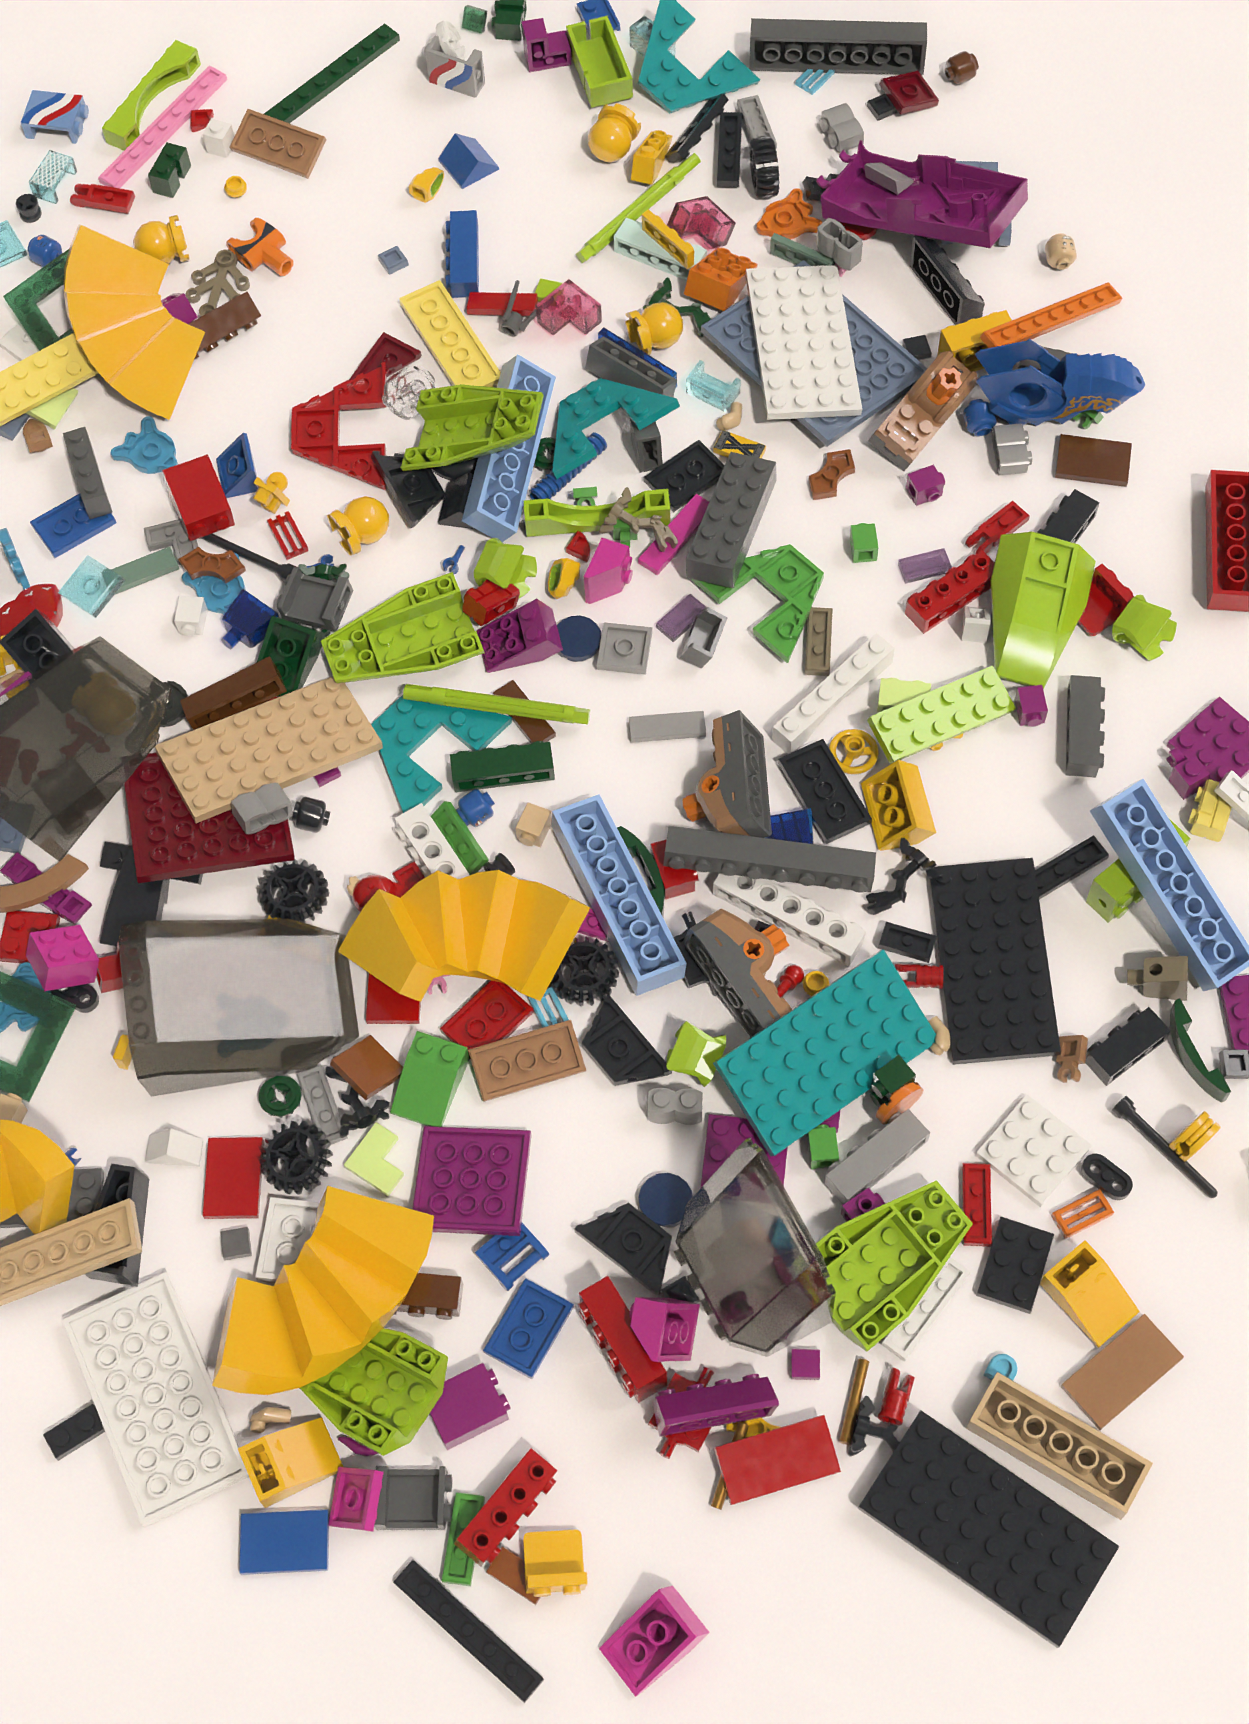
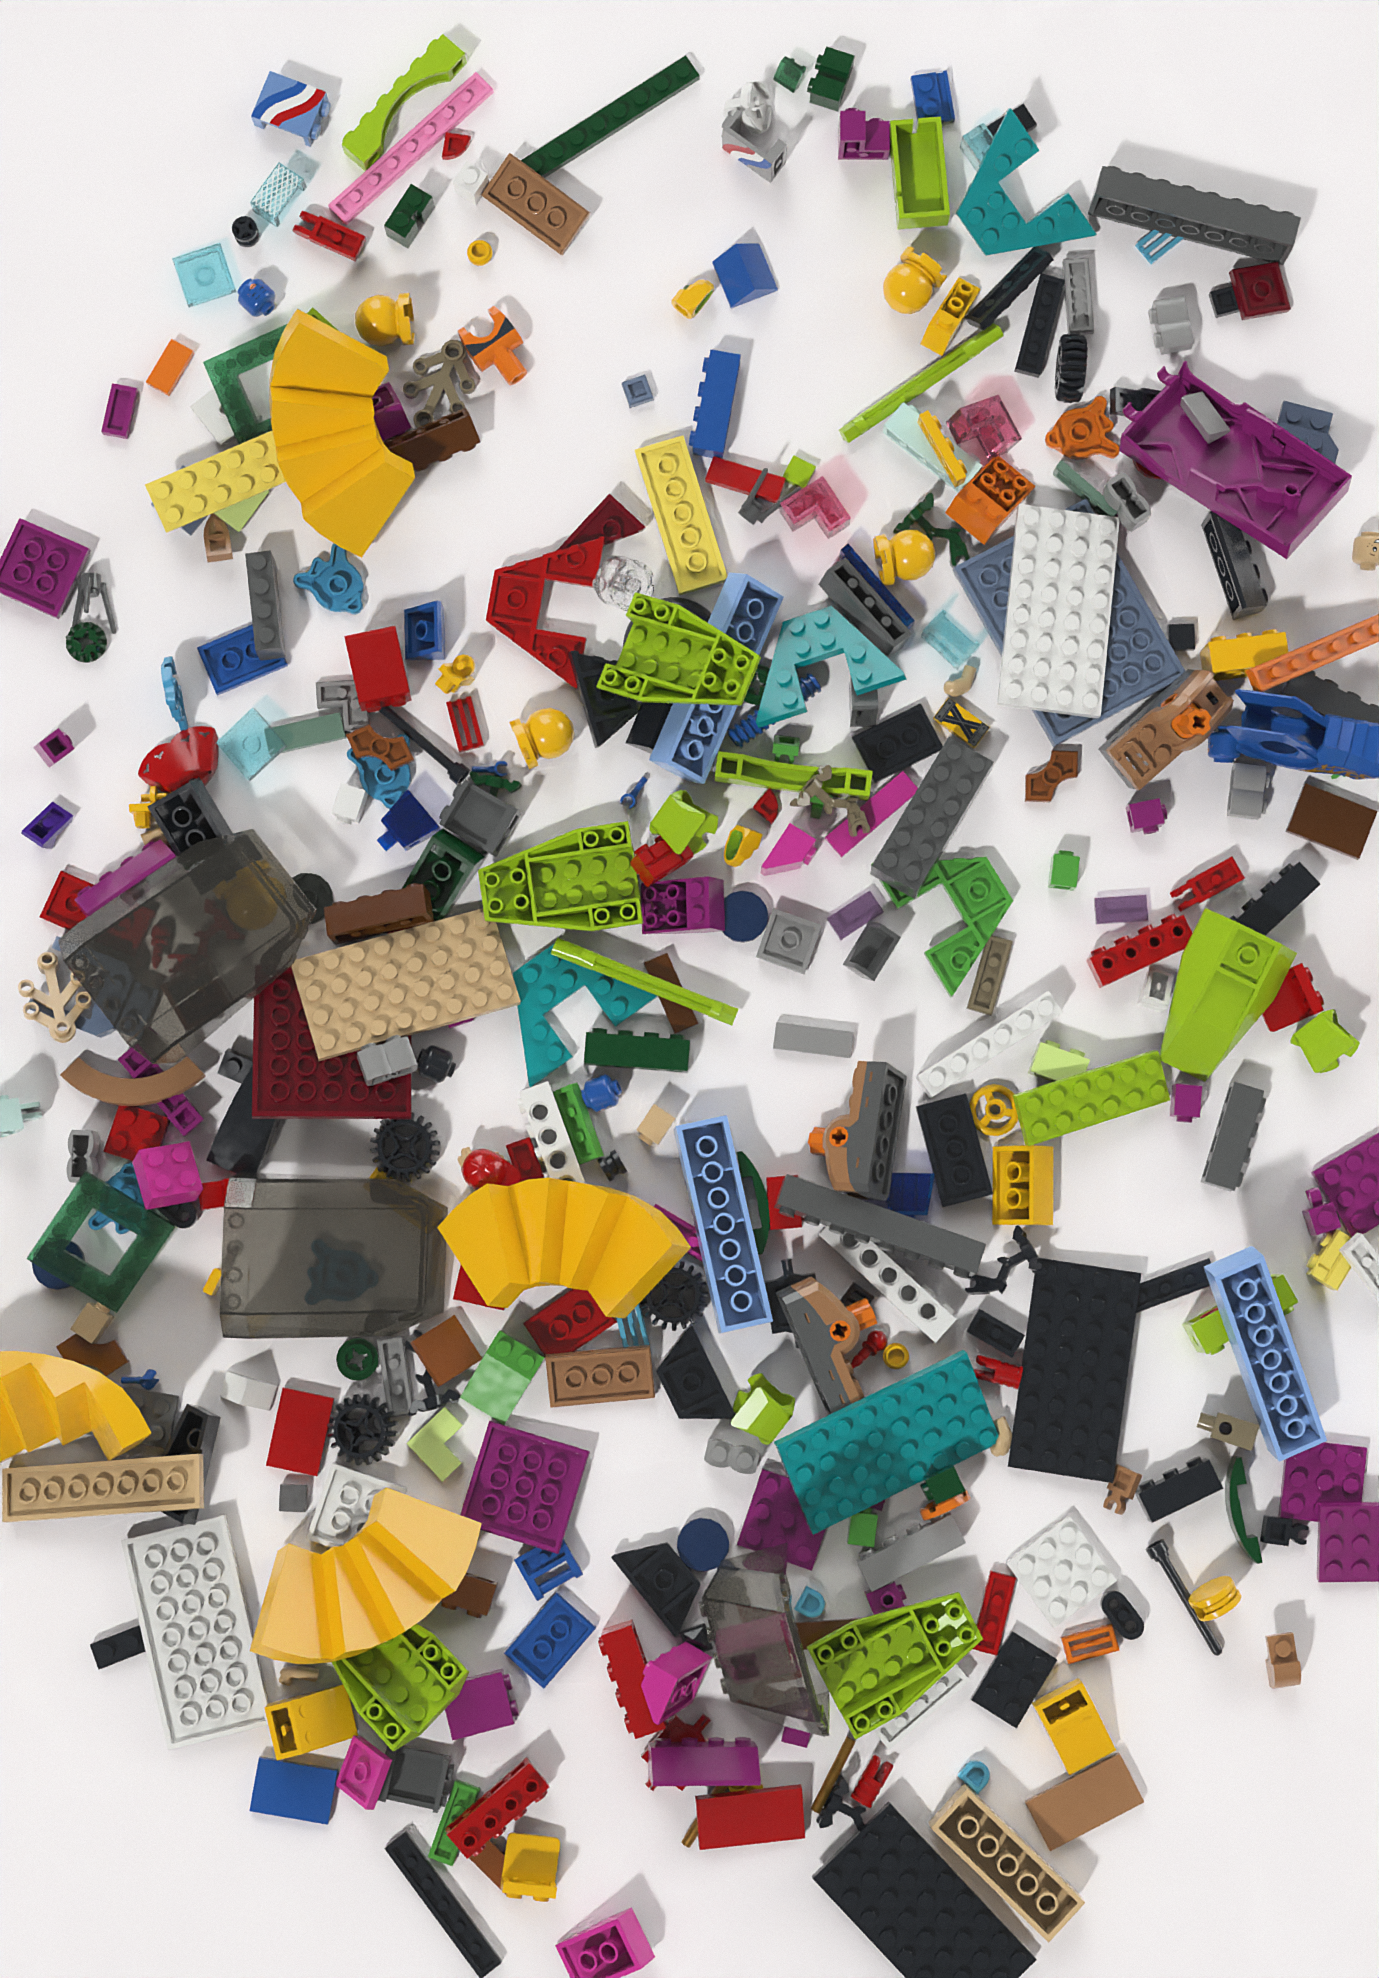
camera: 10 degrees right, 20 degrees up
(961, 67) = (1327, 271): reddish brown head -> none

